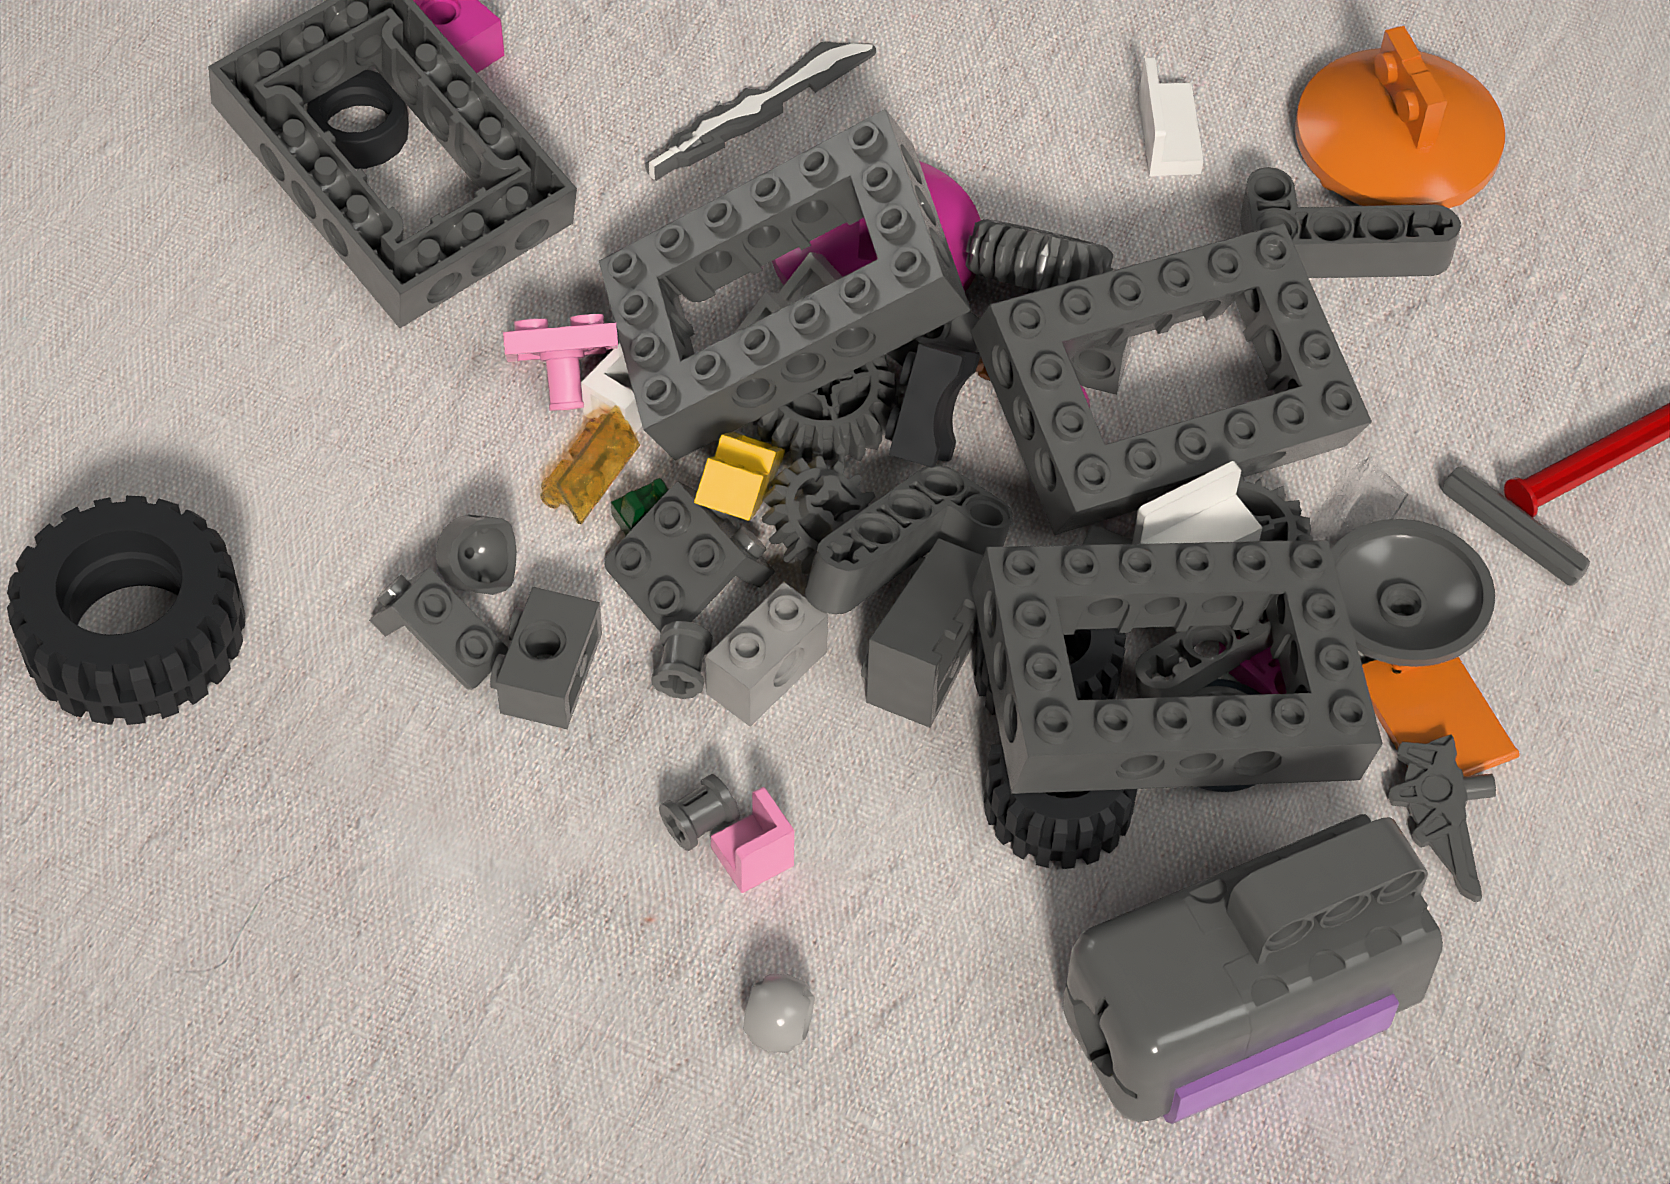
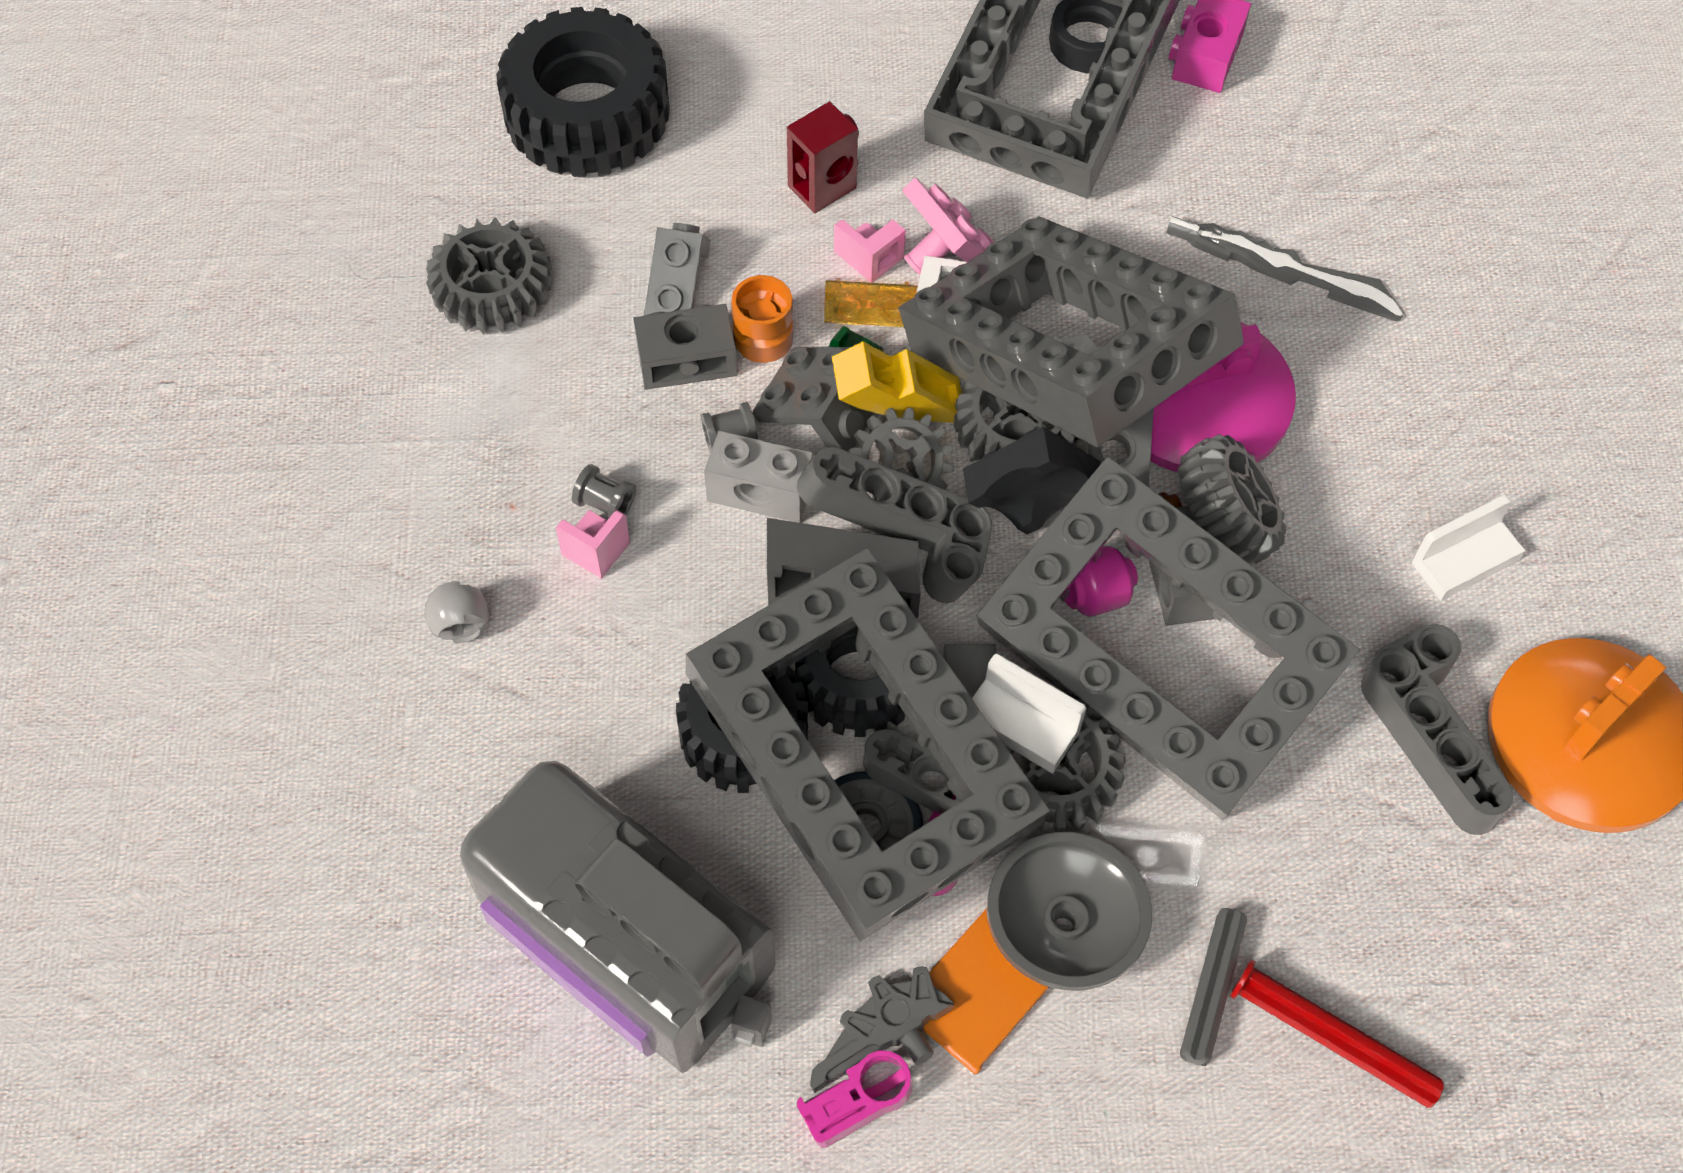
camera: 65 degrees right, 5 degrees up
(299, 839) = (488, 288): none -> dark grey gear
(388, 416) = (822, 156): none -> dark red brick
(477, 554) = (741, 257): dark grey piece -> none
(521, 439) = (870, 250): none -> bright pink panel
(565, 556) = (762, 318): none -> orange wheel
(1512, 870) = (848, 1106): none -> dark pink piece

